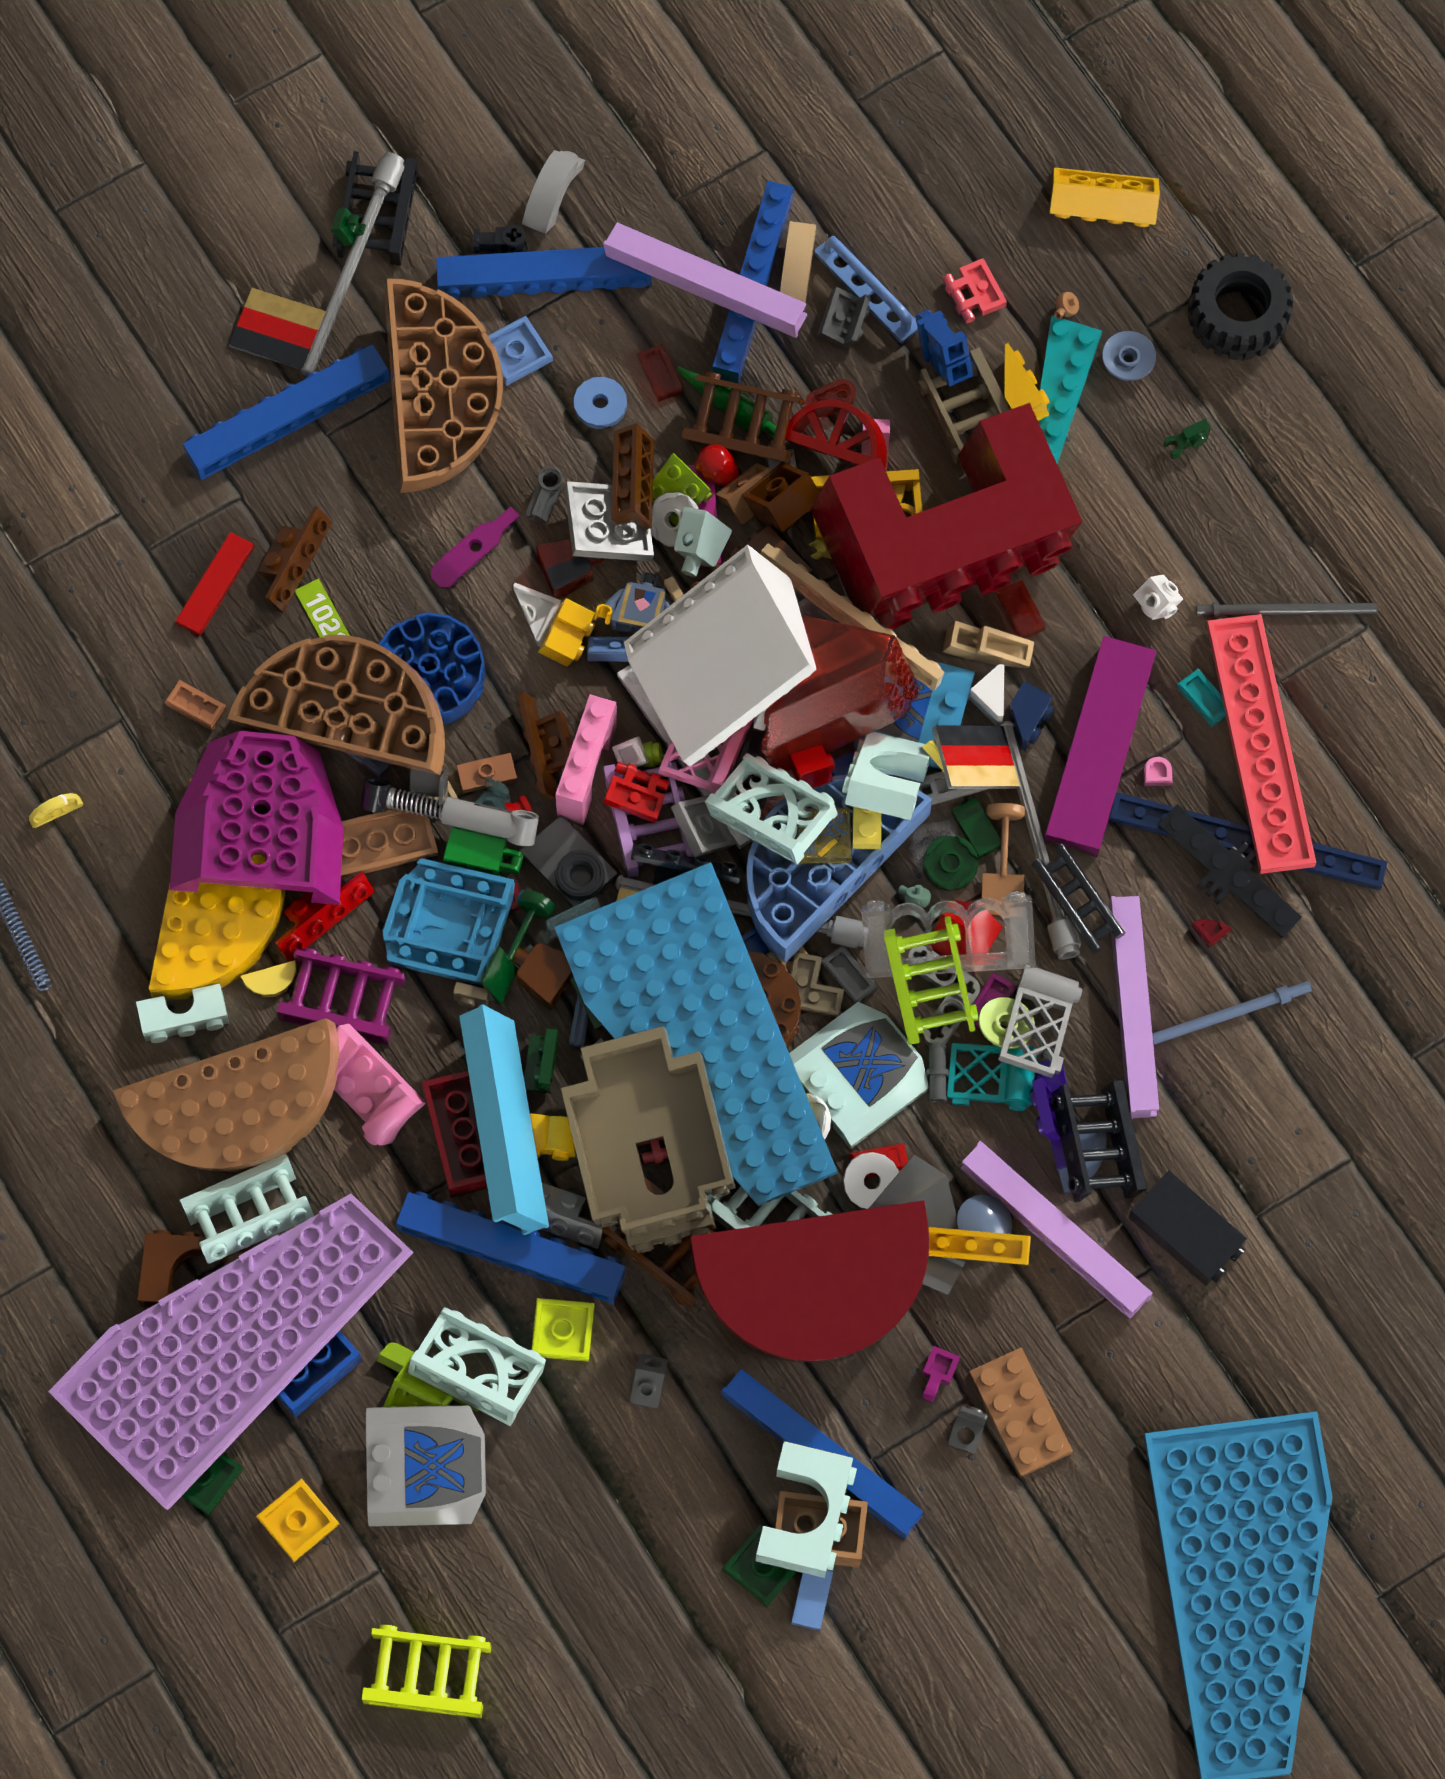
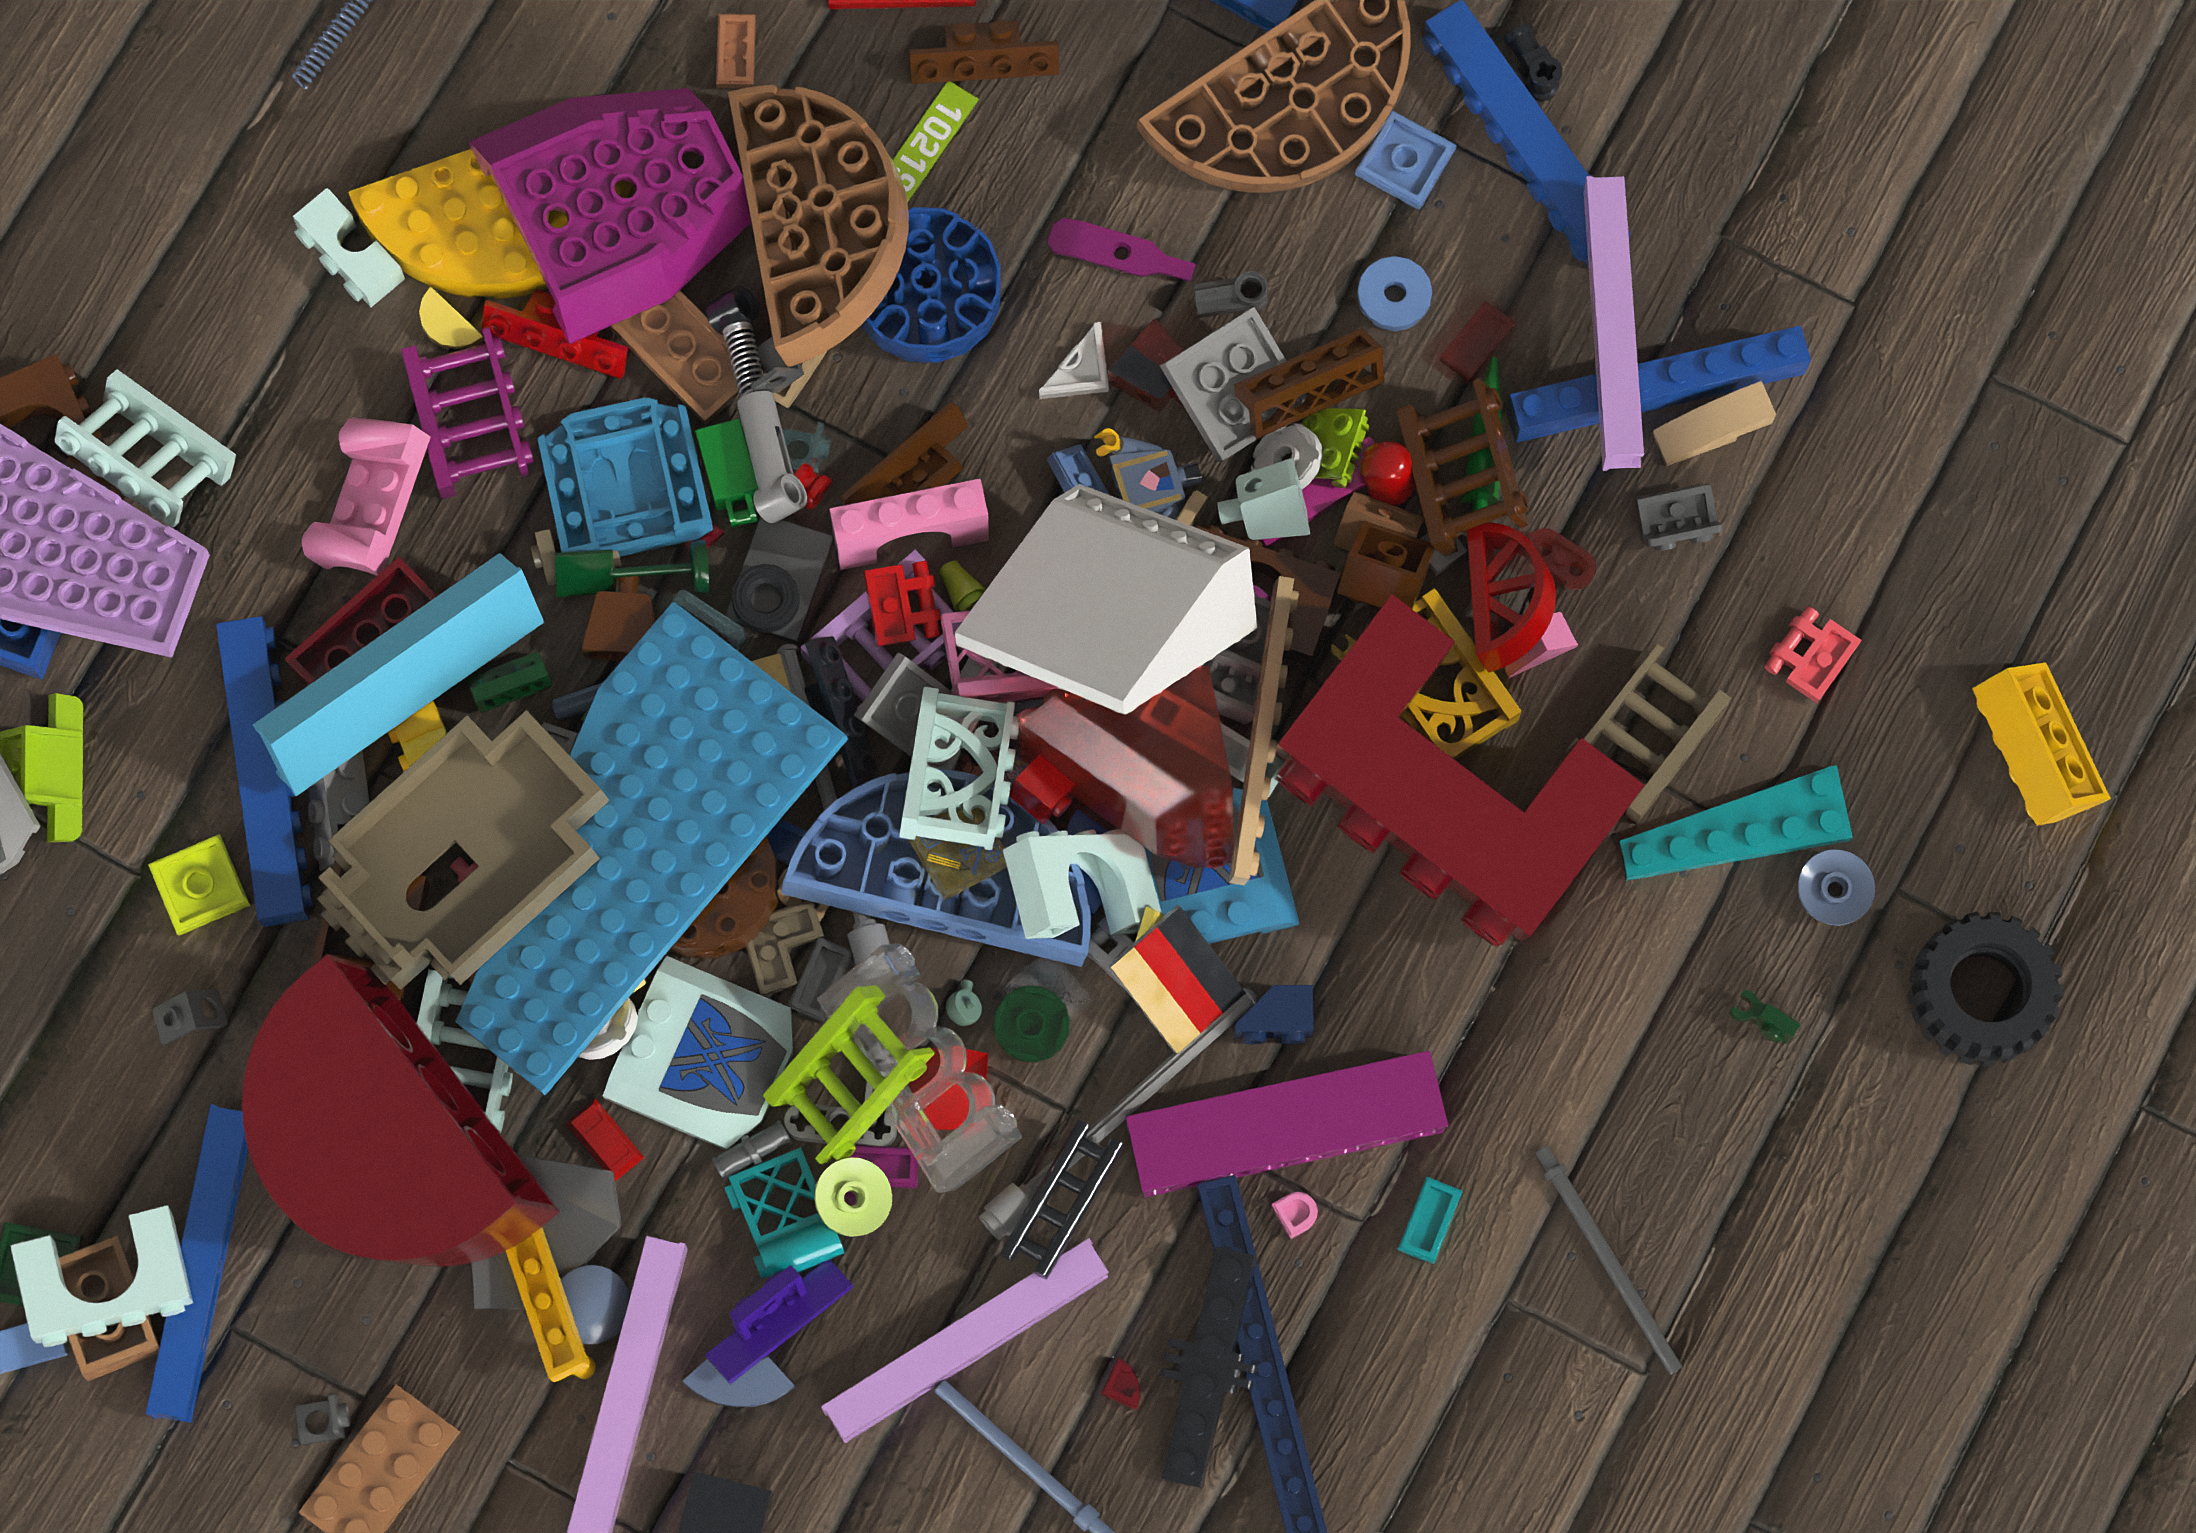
camera: 60 degrees right, 5 degrees up
(240, 1103) = (260, 368): medium nougat brick -> none
(474, 773) = (841, 423): nougat plate -> none
(476, 1339) = (58, 847): light aqua fence -> none
(550, 188) = (1635, 78): light grey arch -> none
(566, 633) = (1066, 416): yellow brick -> none
(631, 752) = (950, 572): white tile -> none
(832, 249) = (1715, 595): medium blue piece -> none
(859, 1168) = (580, 1120): white tile -> none
(866, 829) = (992, 898): light yellow plate -> none
(939, 1369) = (381, 1347): magenta plate -> none
(943, 347) = (1701, 653): blue hips -> none
(977, 827) = (1096, 1032): dark green tile -> none
(987, 645) = (1342, 920): tan slope -> none
(989, 695) = (1279, 956): white slope -> none
(1000, 885) = (1036, 1104): medium nougat piece -> none
(1021, 386) = (1699, 781): yellow slope -> none
(1021, 610) = (1413, 935): clear red plate -> none
(1045, 989) = (928, 1231): light grey piece -> none
(1066, 305) = (1860, 775): medium nougat piece -> none
(1122, 1133) = (799, 1400): black fence -> none
(1158, 597) = (1524, 1092): white brick -> none
(1261, 744) = (1400, 1318): coral plate -> none

